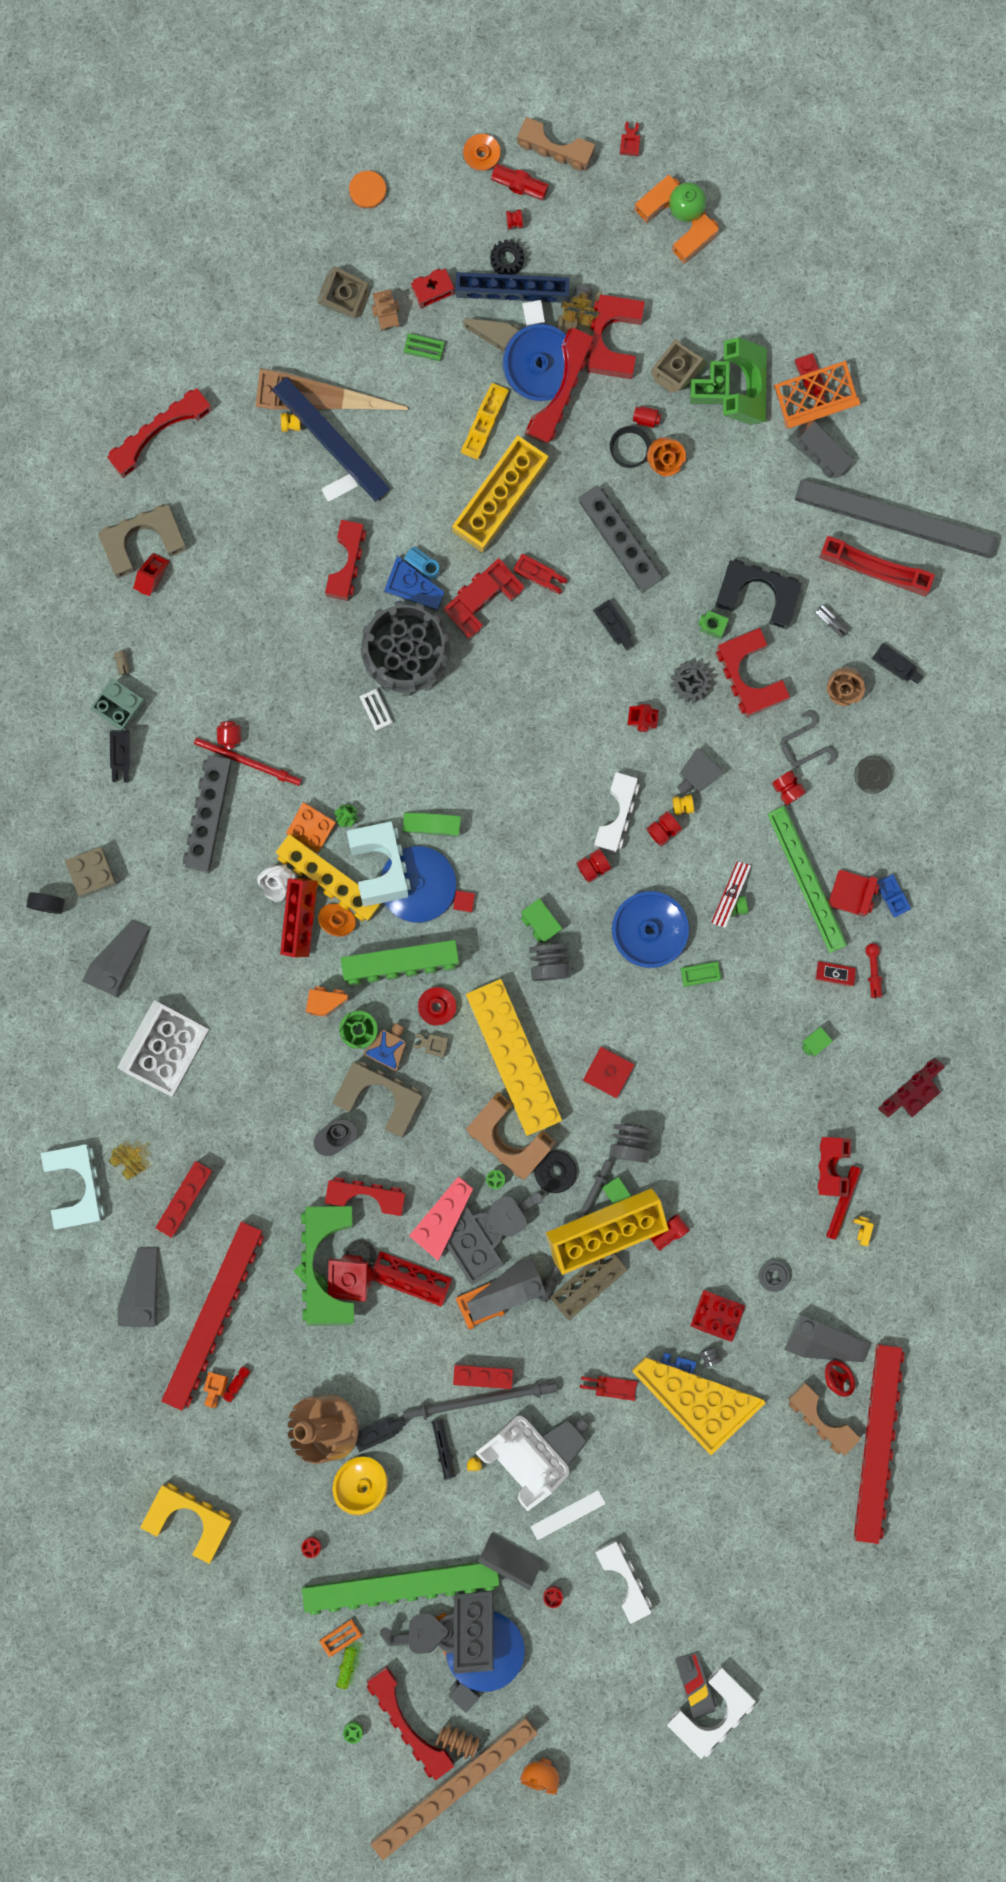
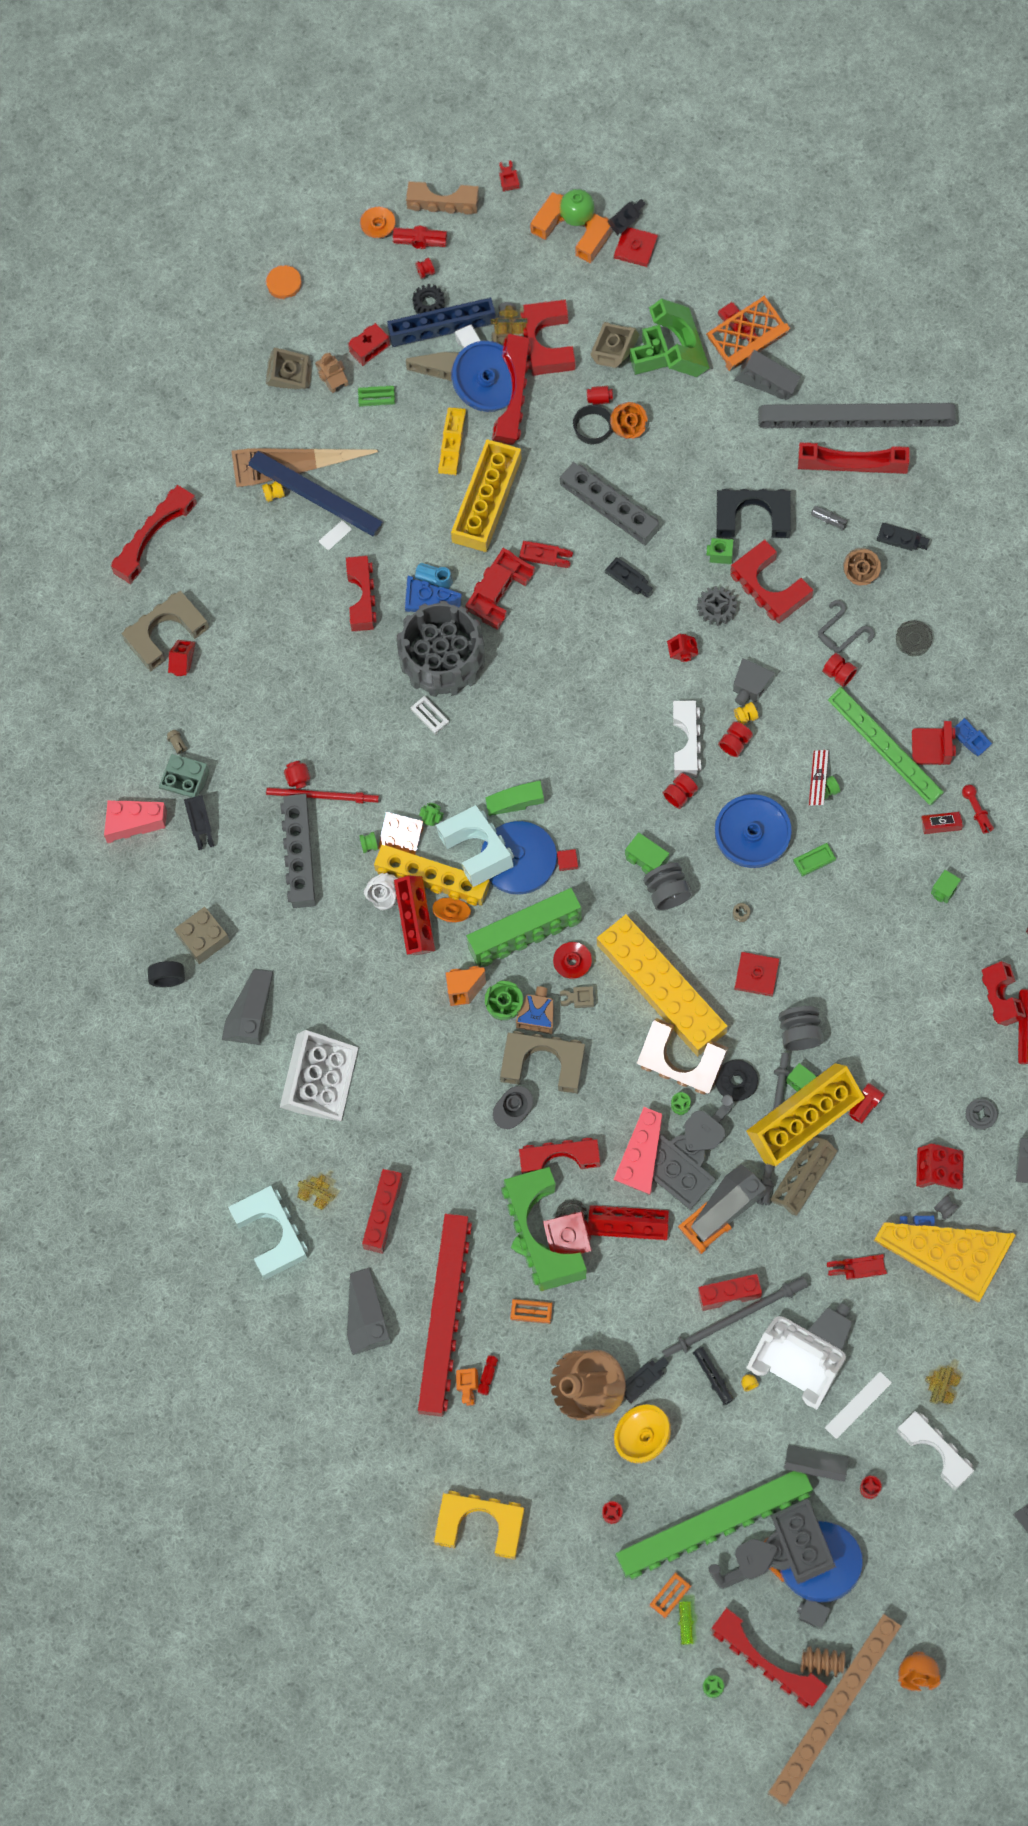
camera: 10 degrees left, 15 degrees down
(57, 731) = (133, 818): none -> coral wedge
(277, 825) = (368, 842): none -> bright green wheel
(280, 1329) = (529, 1311): none -> orange tile
(607, 1008) = (746, 909): none -> dark tan bush
(648, 1521) = (939, 1384): none -> clear yellow hips
(735, 224) = (625, 216): none -> black hinge
(735, 259) = (635, 246): none -> red plate

